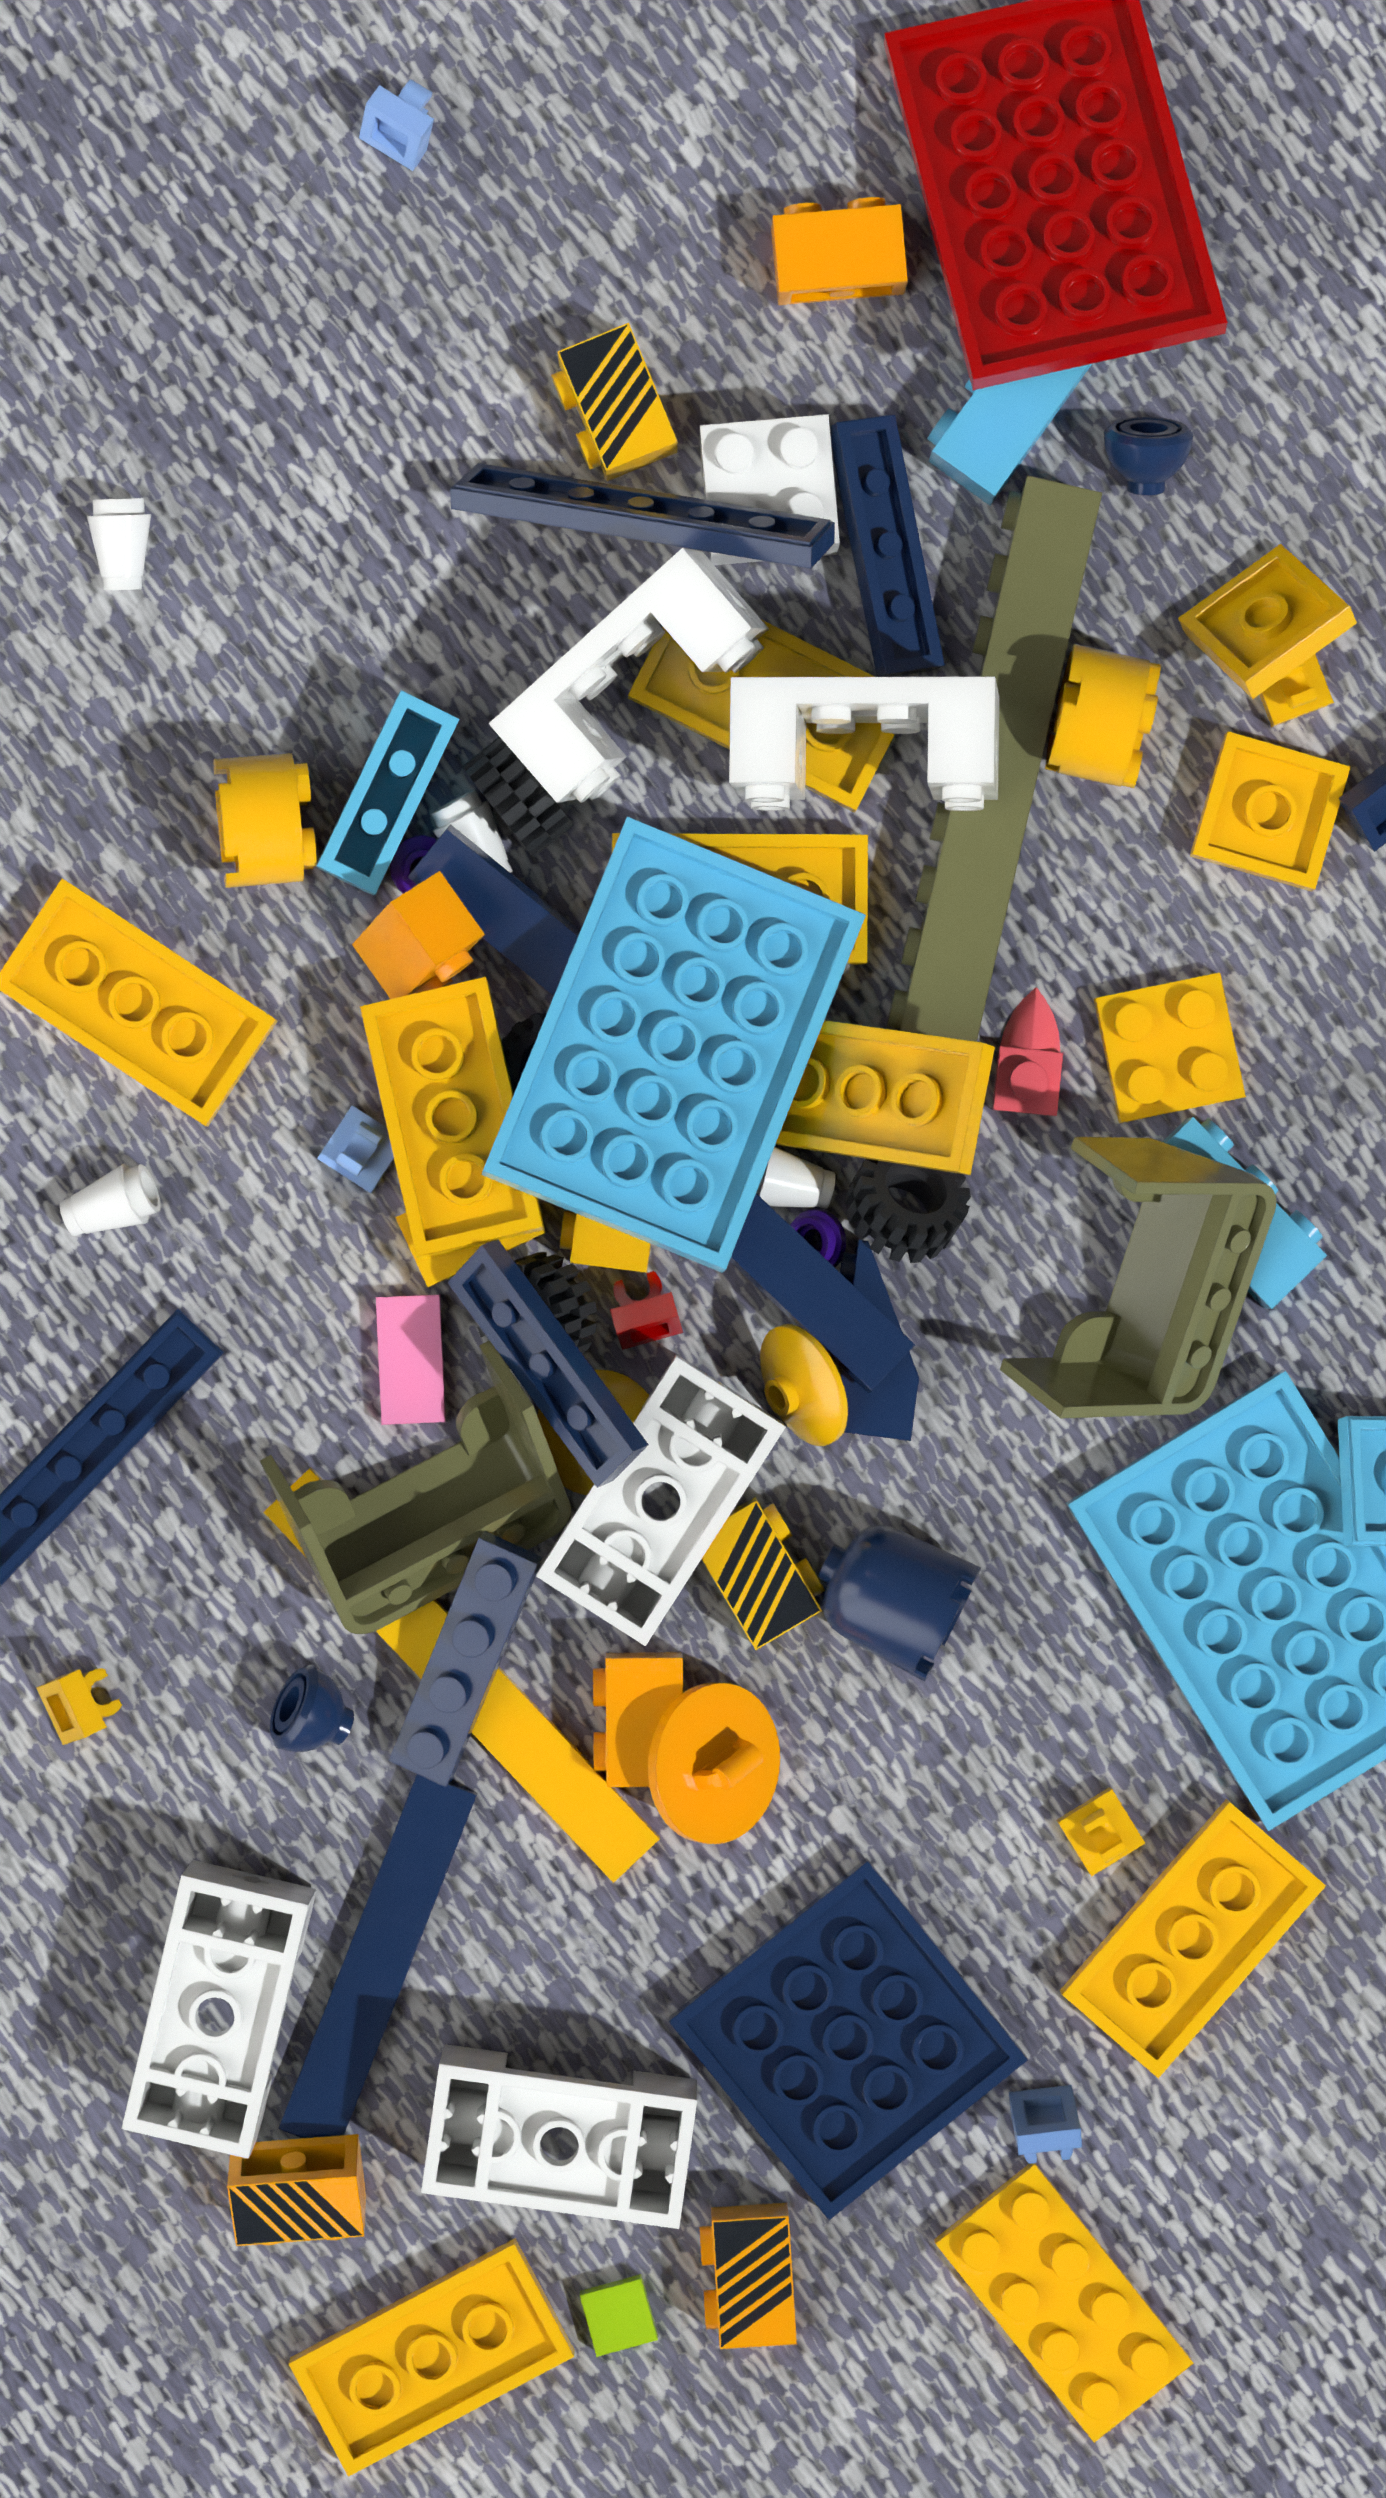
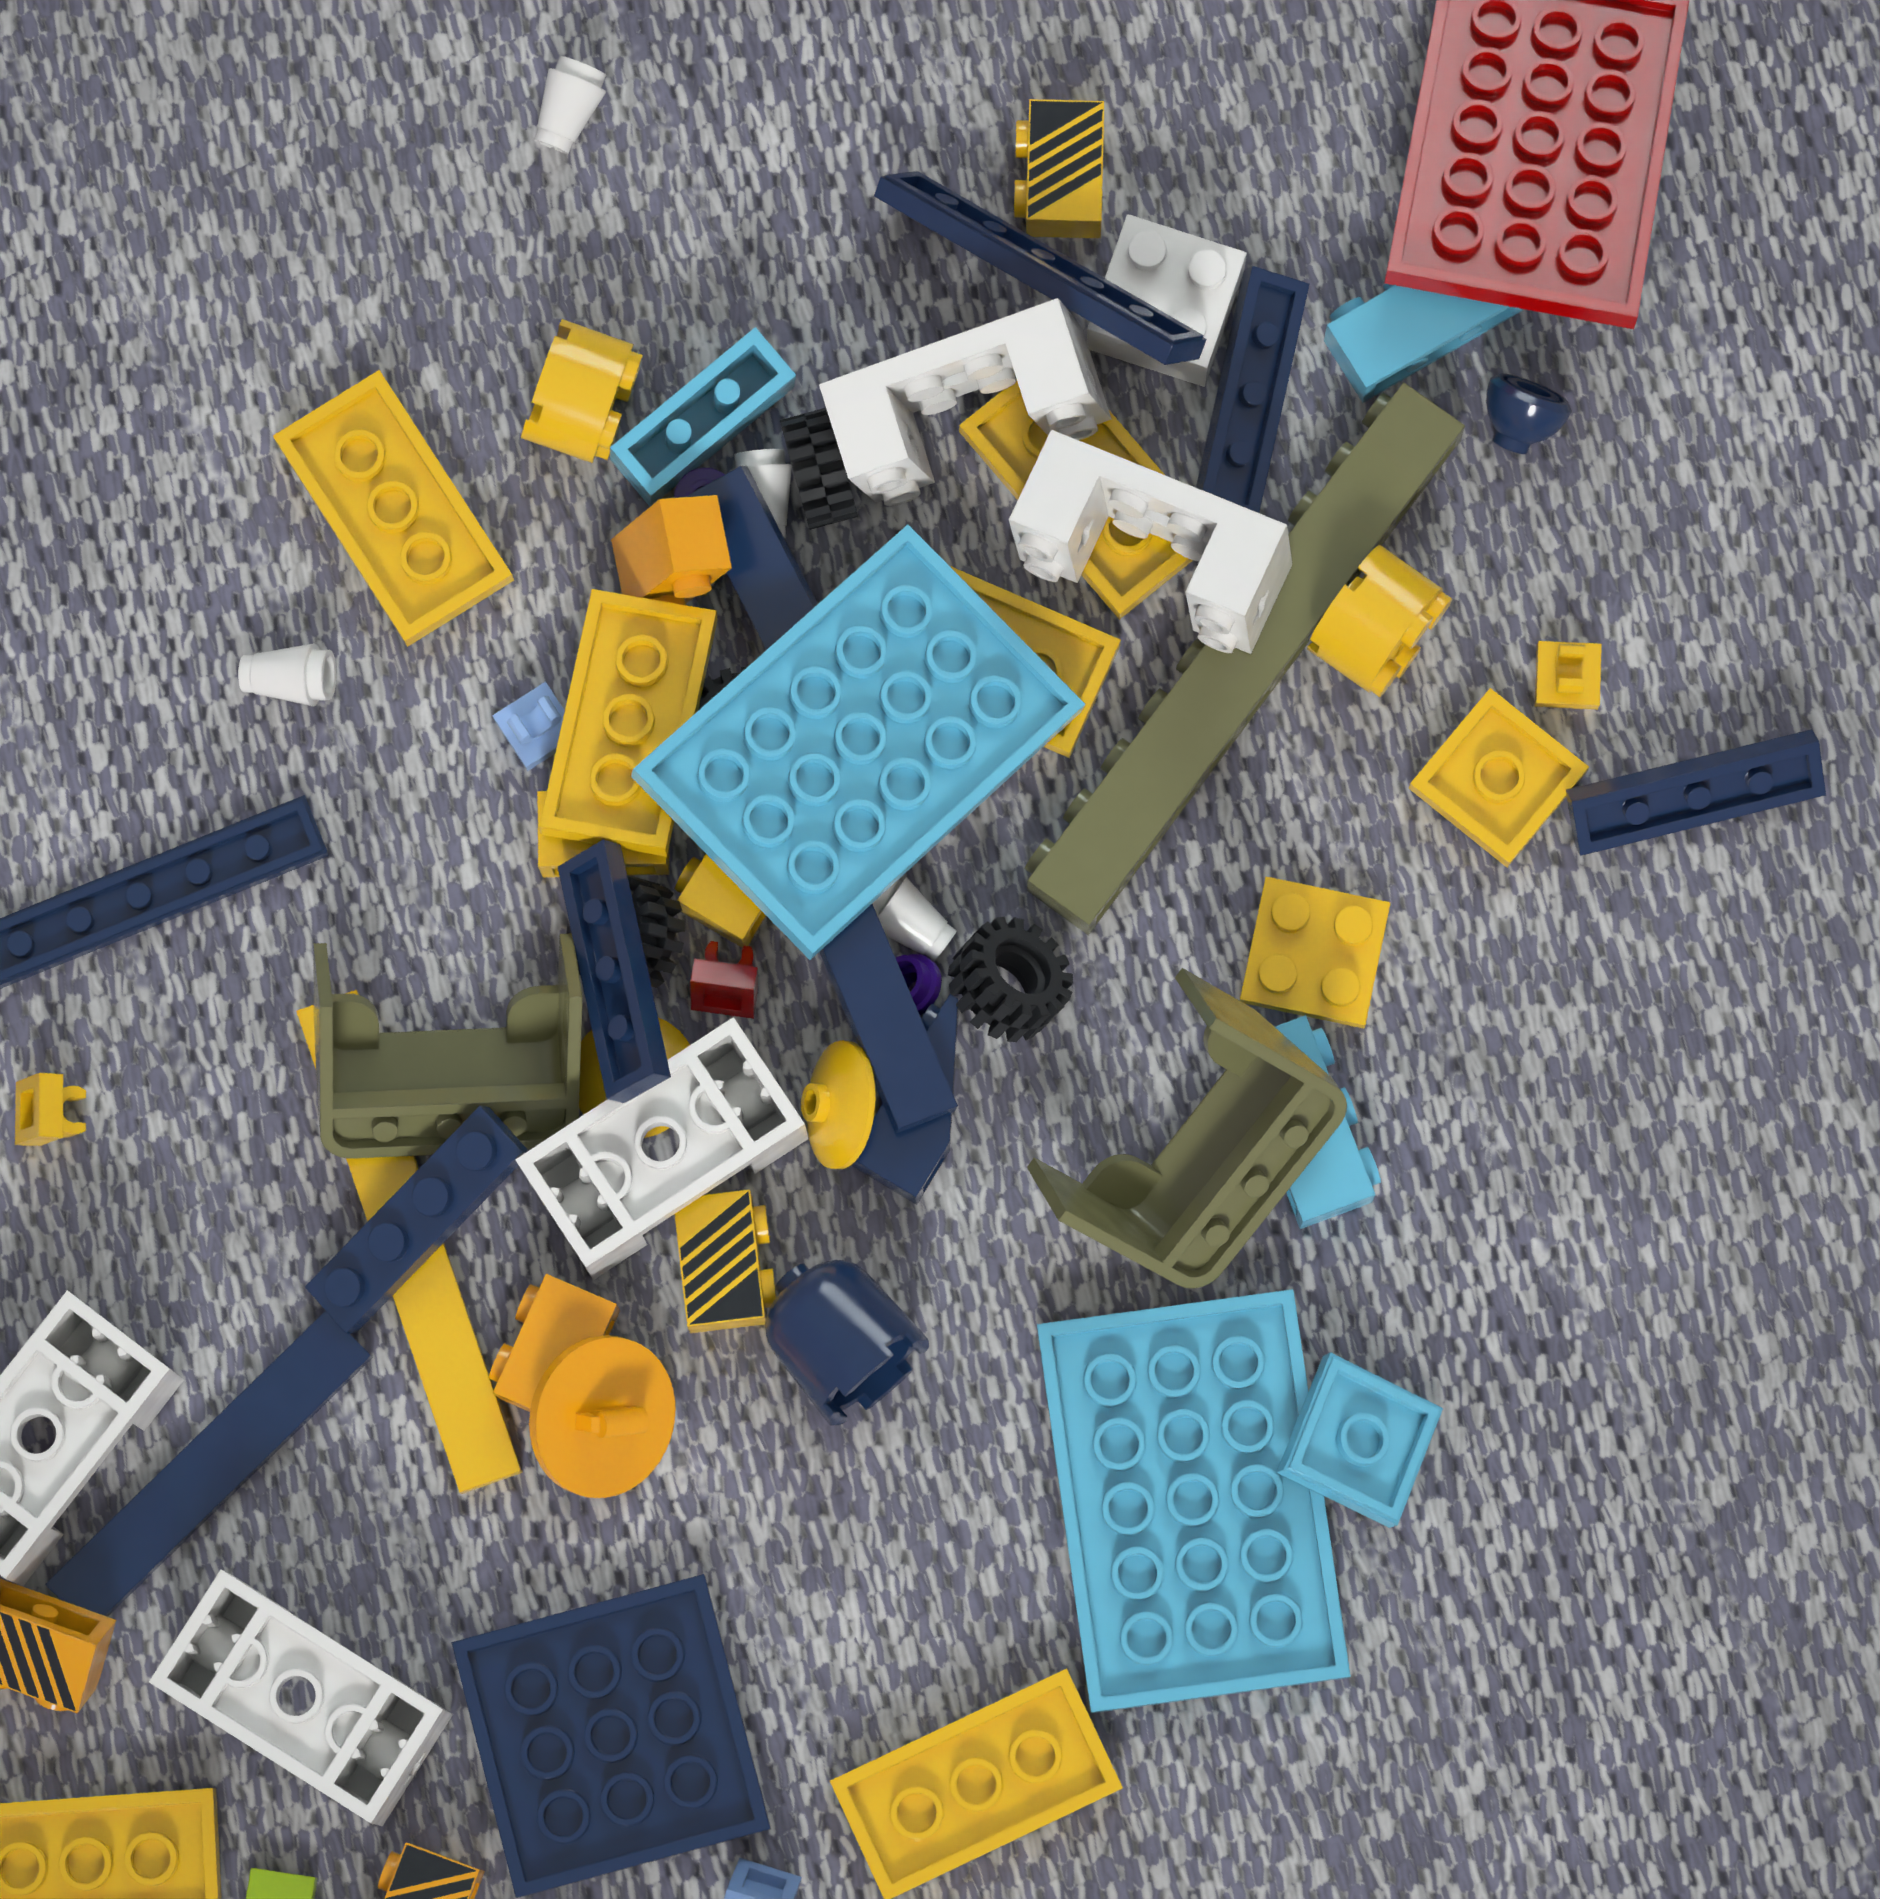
camera: 25 degrees right, 10 degrees down
(309, 1712) = (254, 1211): dark blue brick -> none
(410, 1359) = (494, 933): bright pink tile -> none
(839, 252) = (1320, 123): light orange brick -> none
(891, 1097) = (1031, 871): yellow plate -> none
(1029, 1060) = (1180, 909): coral plate -> none
(1100, 1831) = (934, 1647): yellow tile -> none
(1267, 621) = (1567, 603): yellow plate -> none

